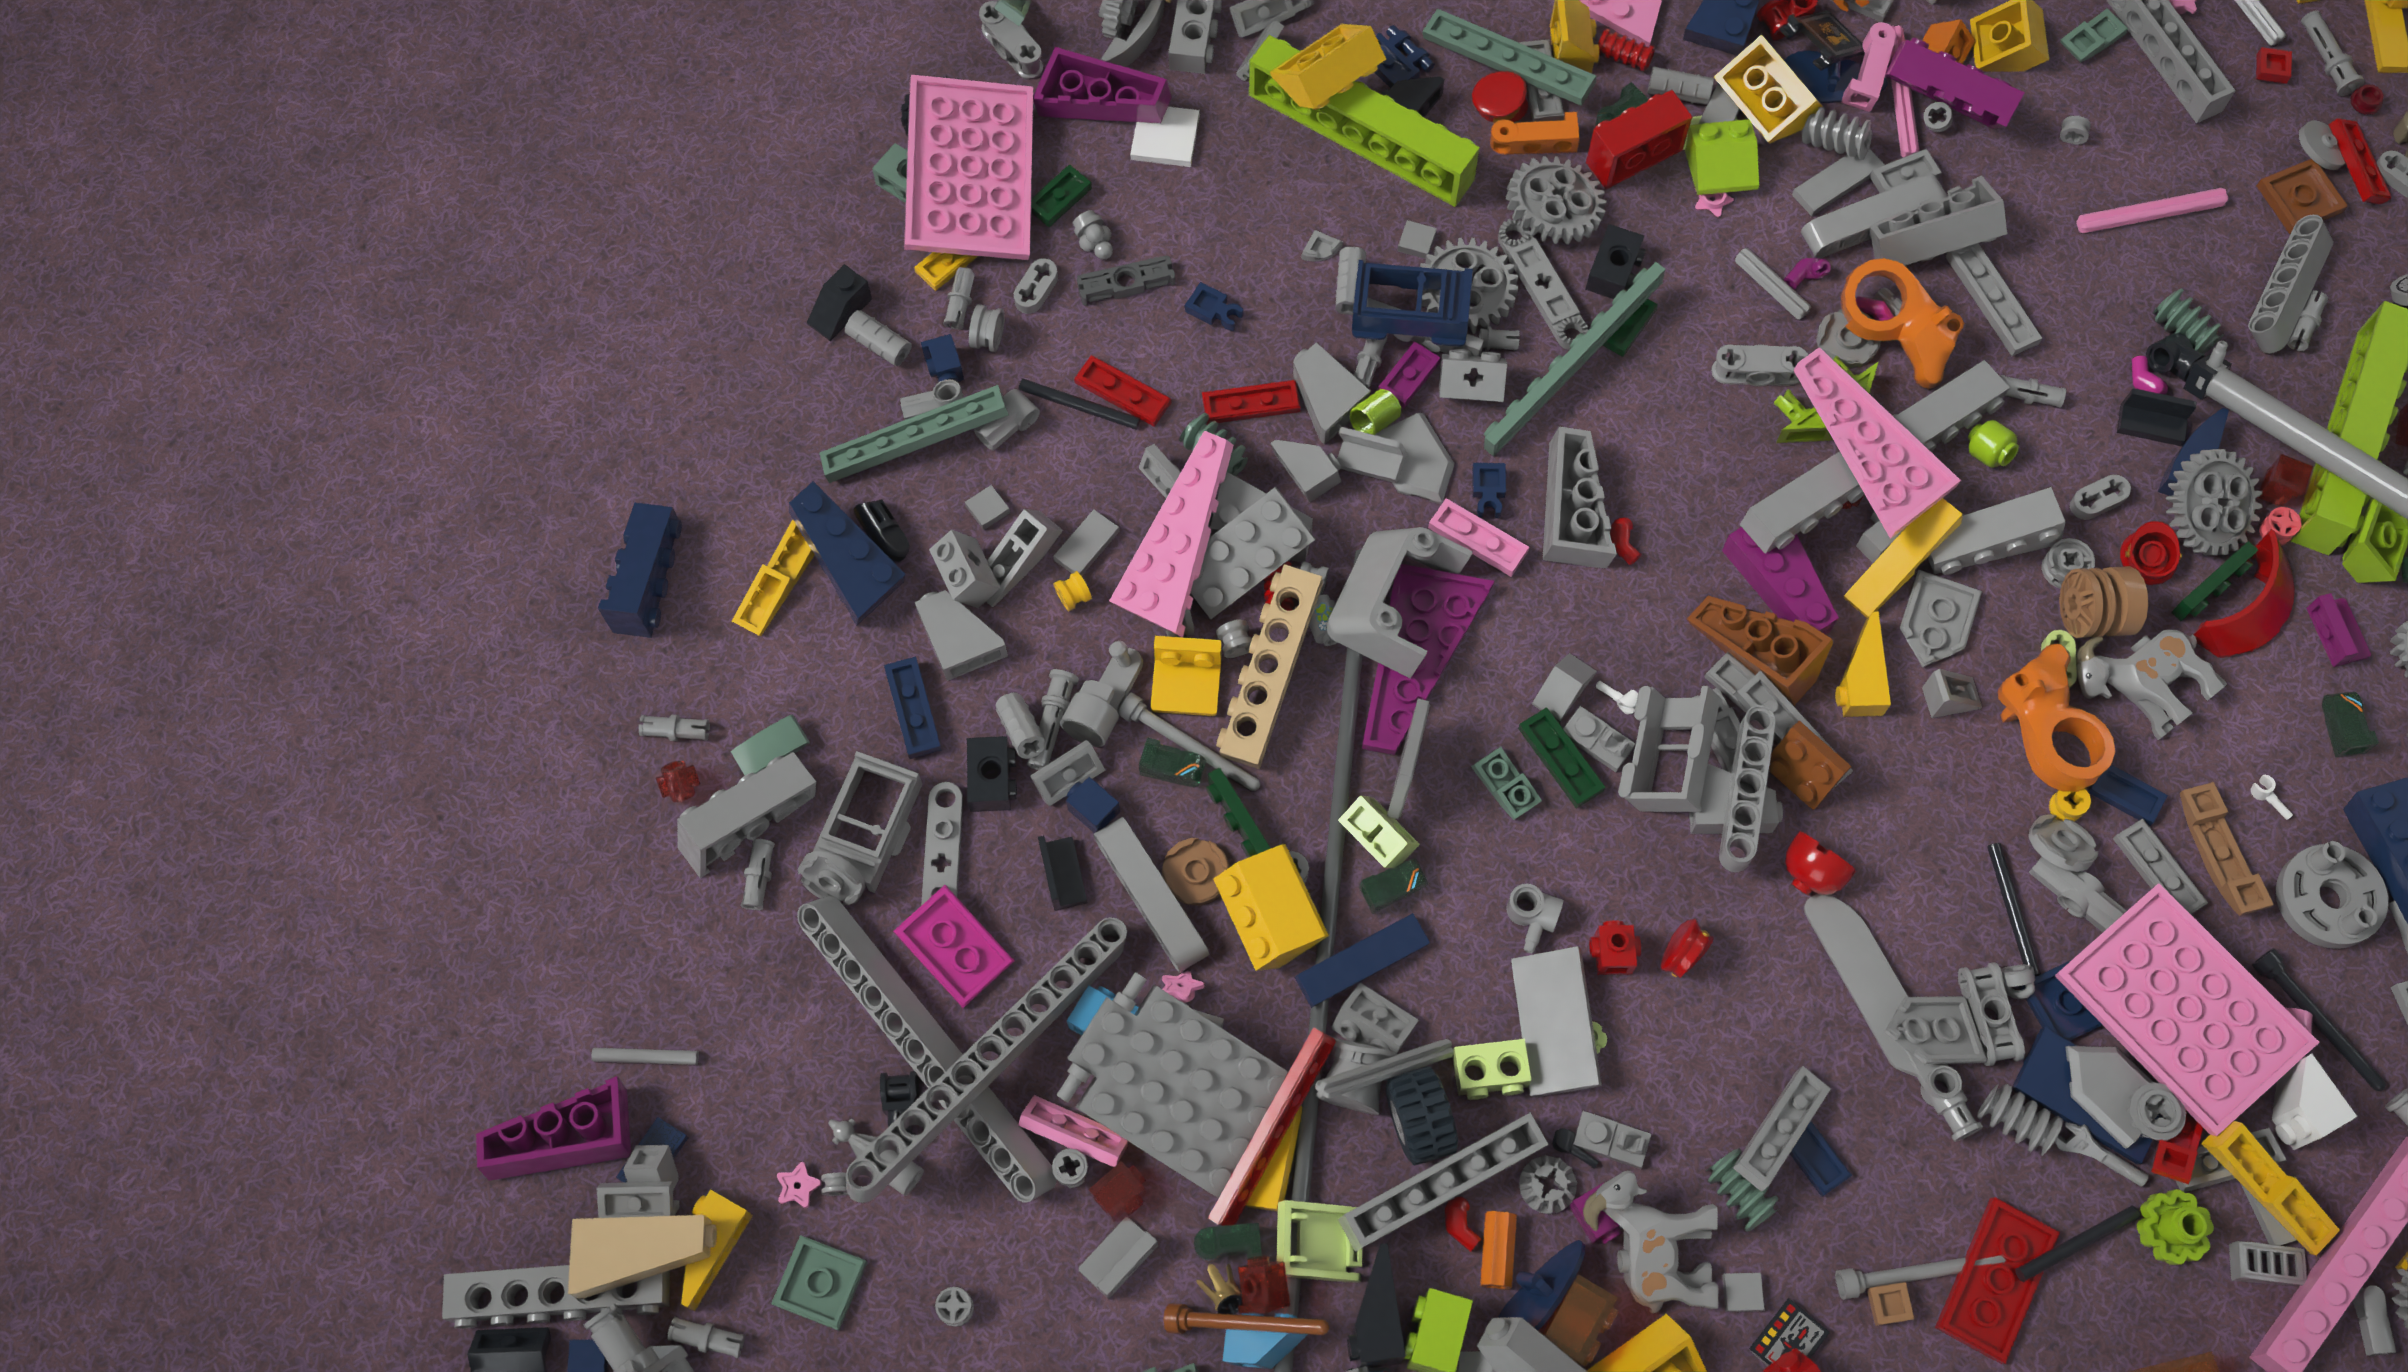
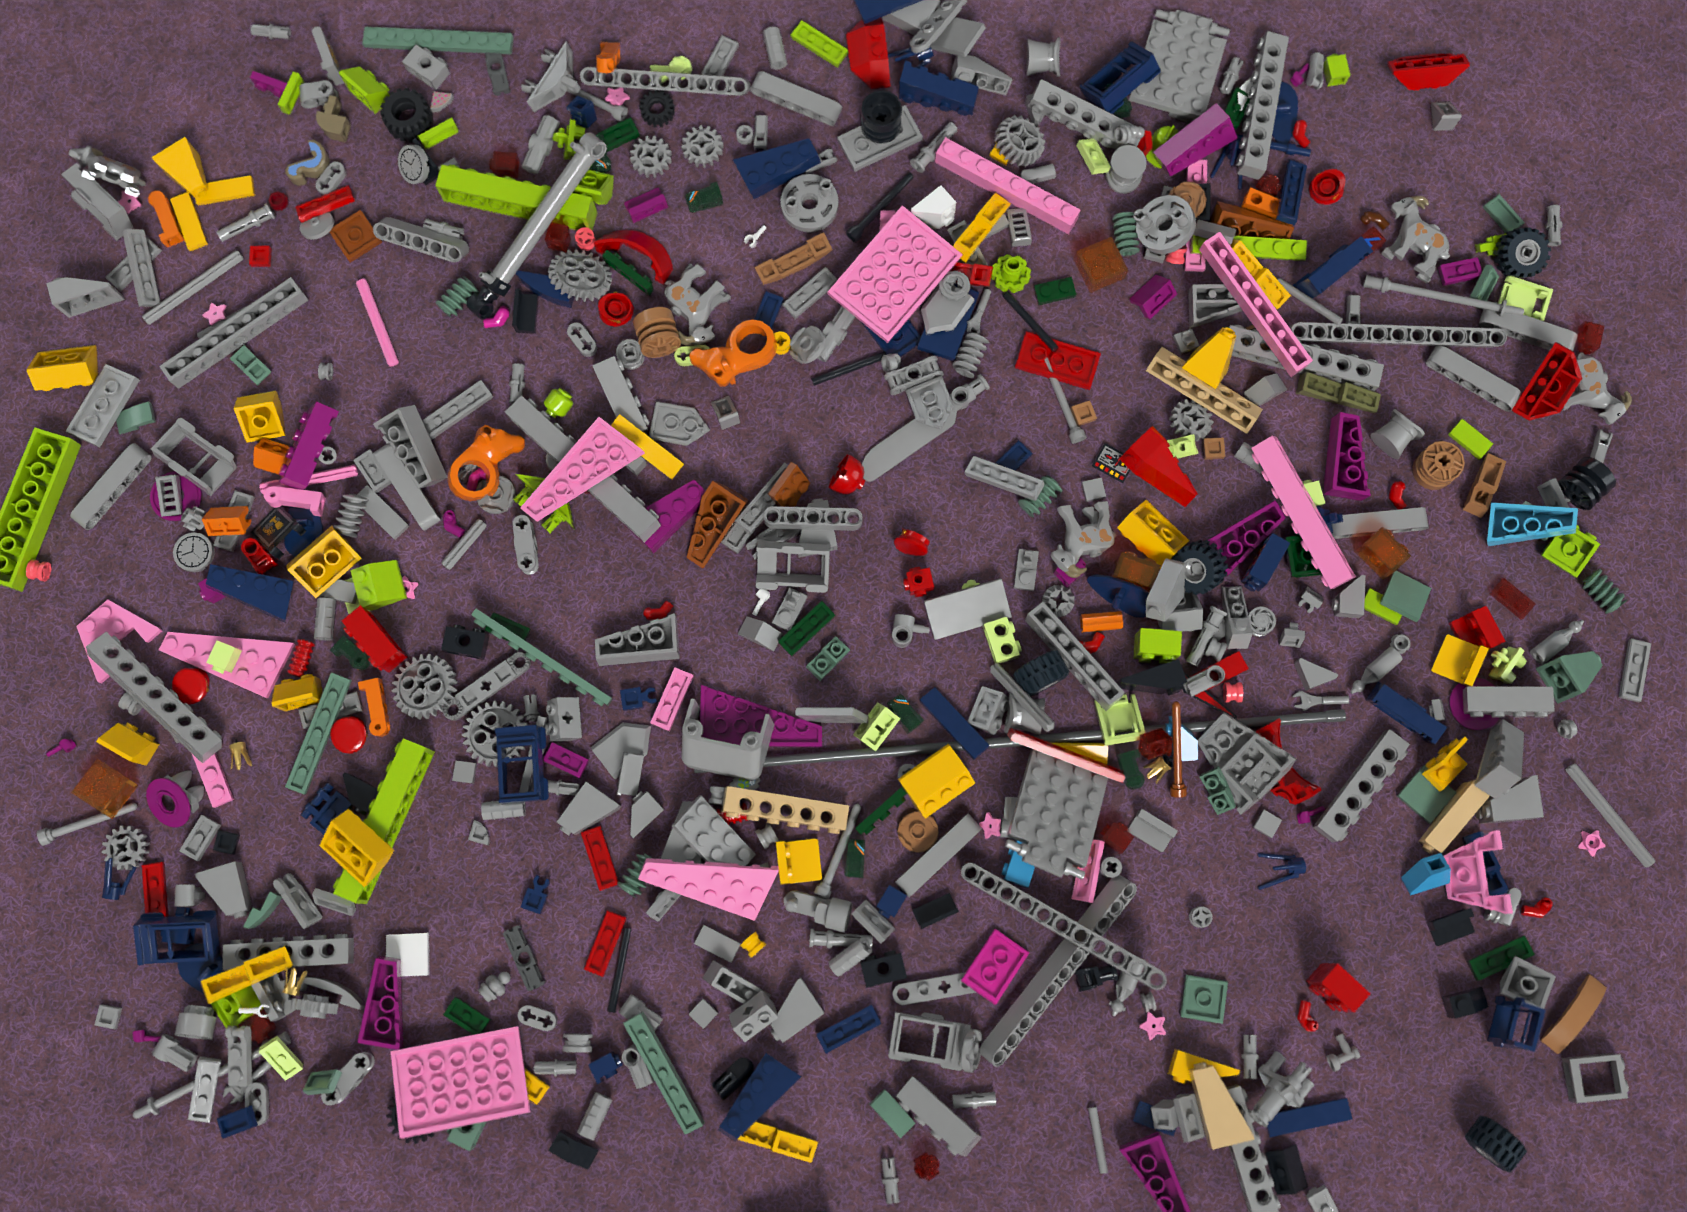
camera: 100 degrees left, 10 degrees up
(1375, 412) = (599, 776): lime piece -> none
(1563, 1142) = (1032, 595): black hand -> none
(1865, 681) = (724, 462): yellow slope -> none
(2135, 1304) = (1055, 291): none -> dark green plate

